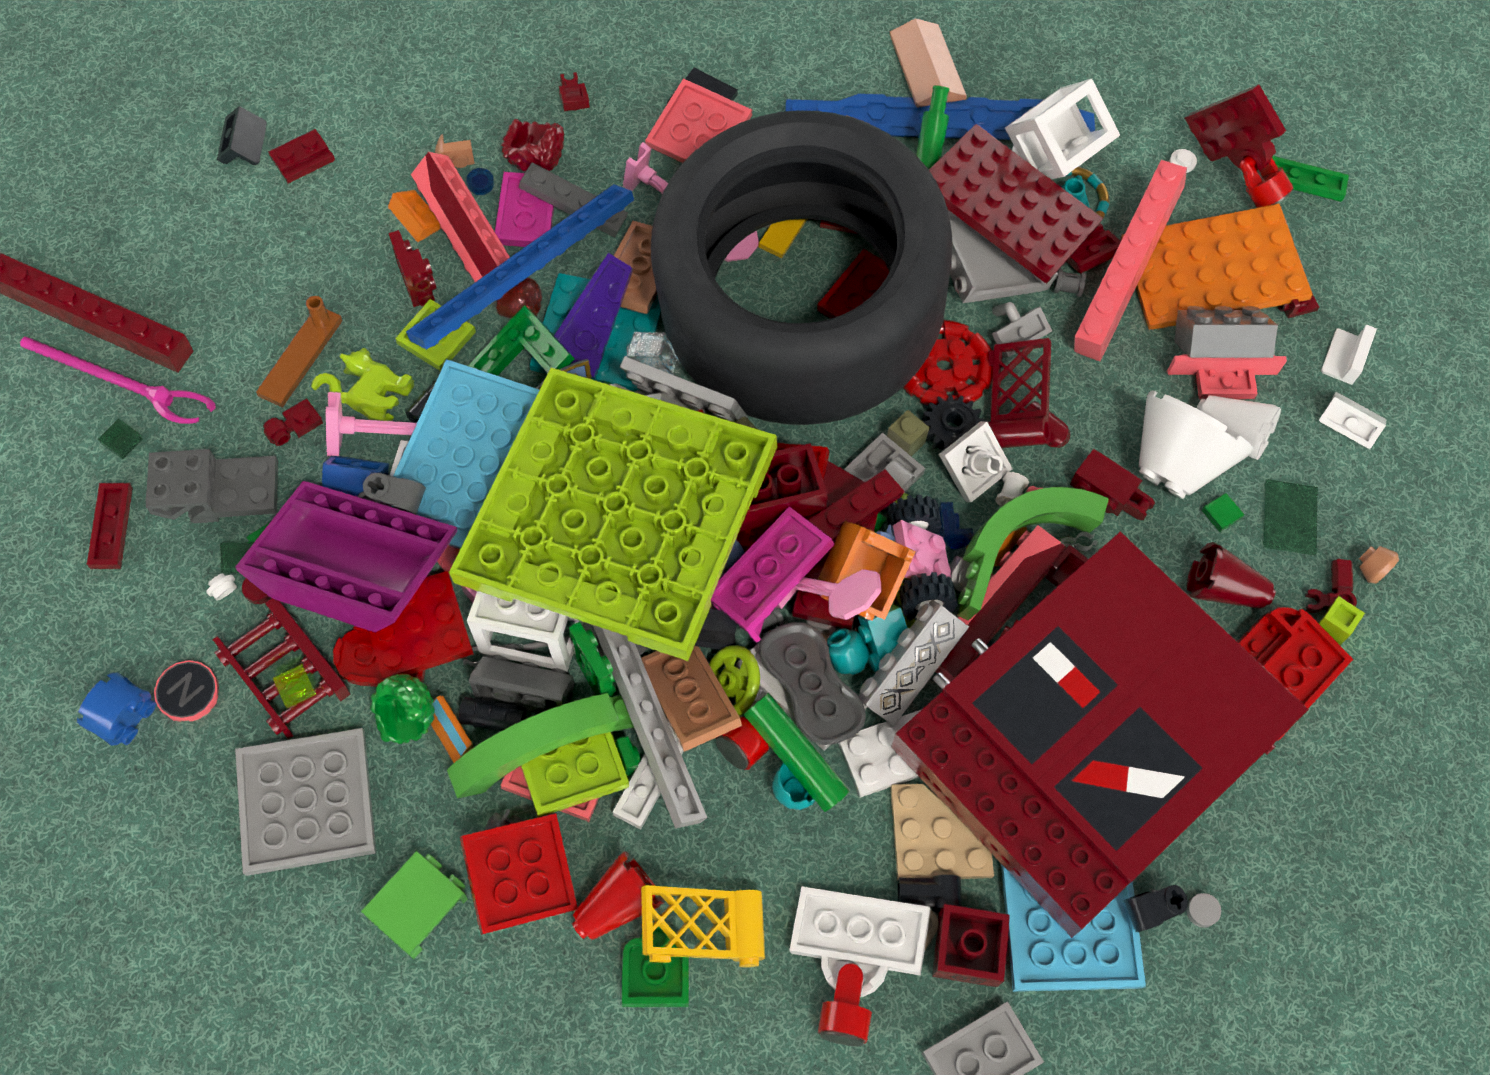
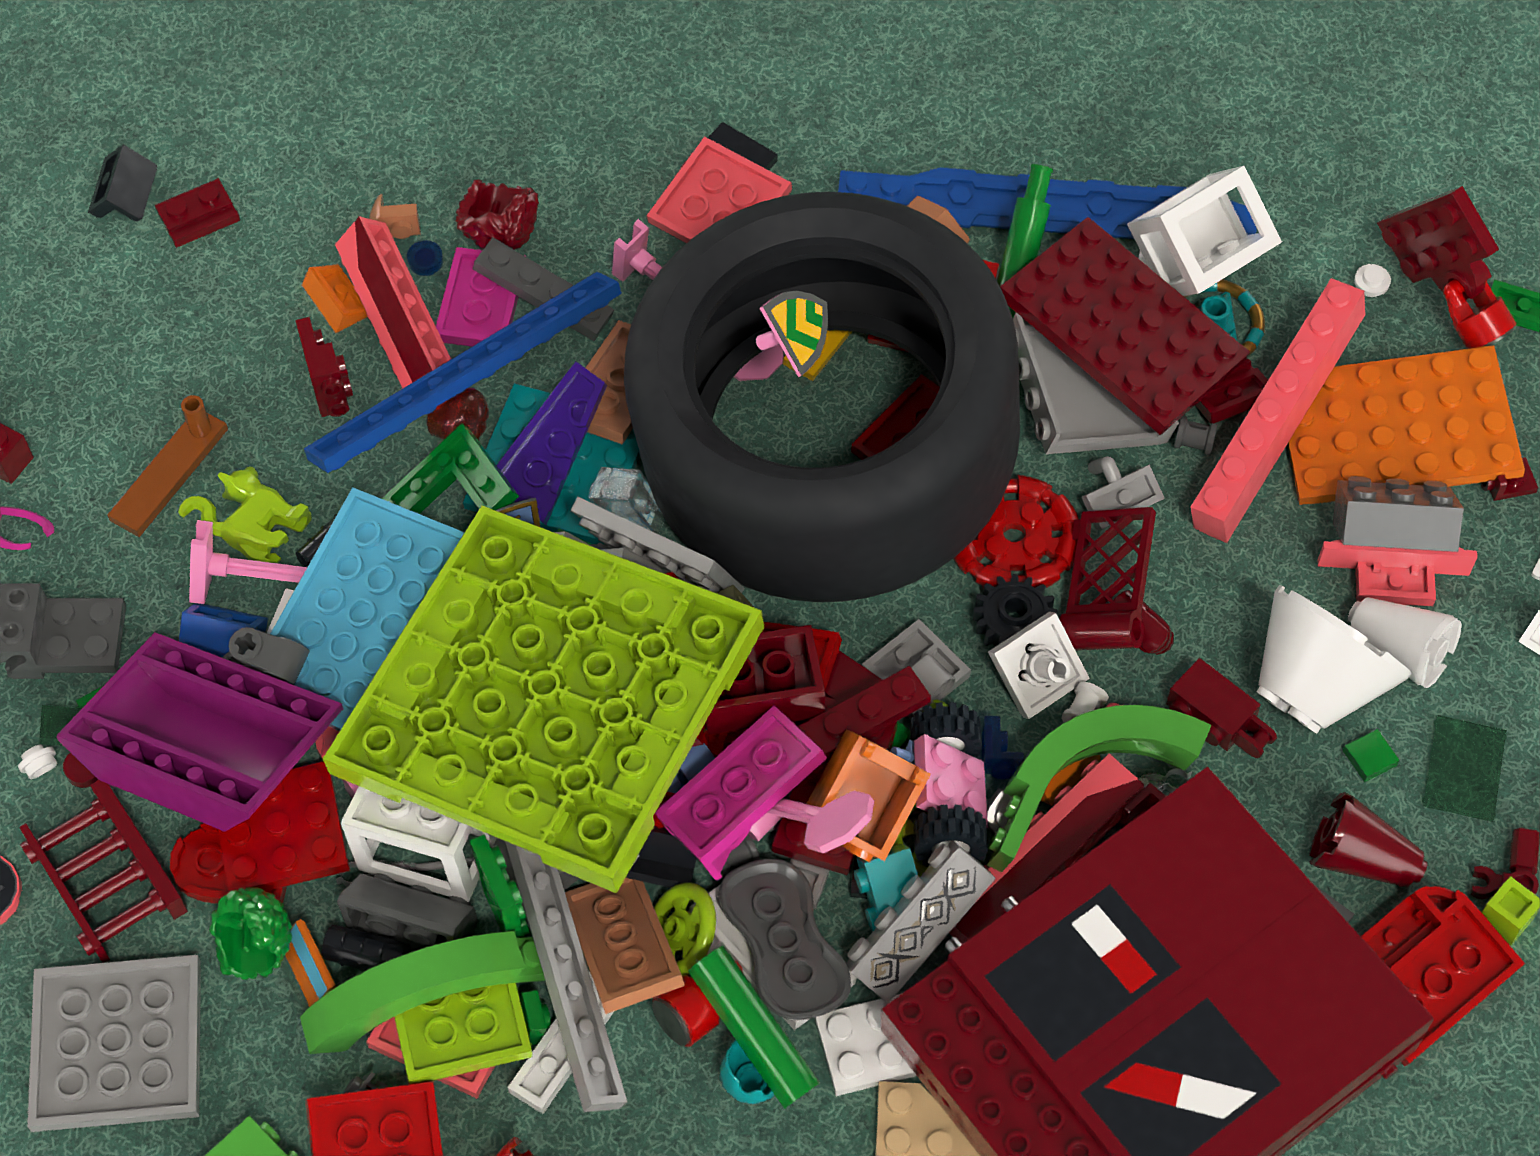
camera: 10 degrees right, 5 degrees down
(294, 686) = (116, 893): clear neon green plate -> none
(299, 418) = (158, 553): dark red plate -> none
(445, 349) = (357, 471): lime plate -> none
(572, 94) = (558, 149): dark red plate -> none
(787, 214) = (798, 325): none -> shield
(847, 651) = (838, 903): teal head -> none
(908, 432) = (953, 622): olive brick -> none
(926, 61) = (1036, 129): nougat slope -> none

